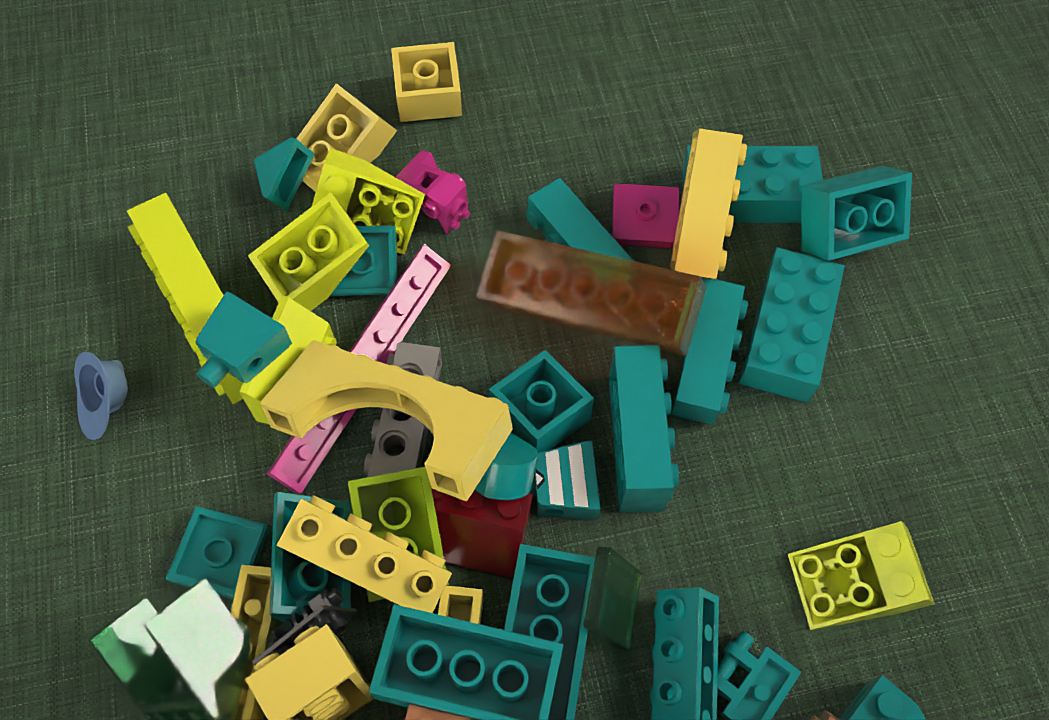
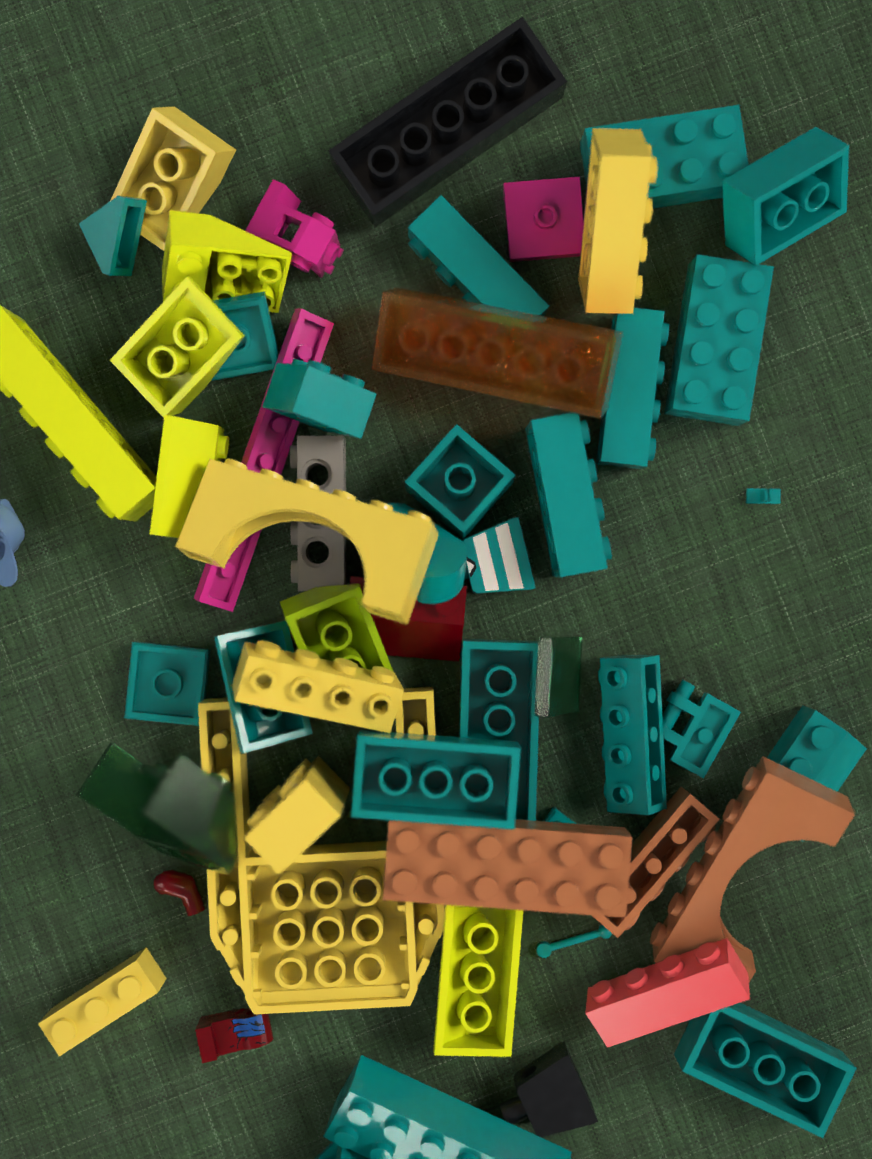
camera: 10 degrees left, 25 degrees up
(239, 341) = (135, 485): teal torso -> none
(323, 610) = (279, 762): black hinge -> none
(424, 309) = (320, 398): none -> teal brick
(426, 82) = (257, 74): light yellow brick -> none
(572, 133) = (448, 122): none -> black brick
(830, 467) = (763, 496): none -> teal piece
(860, 577) = (796, 611): neon yellow slope -> none

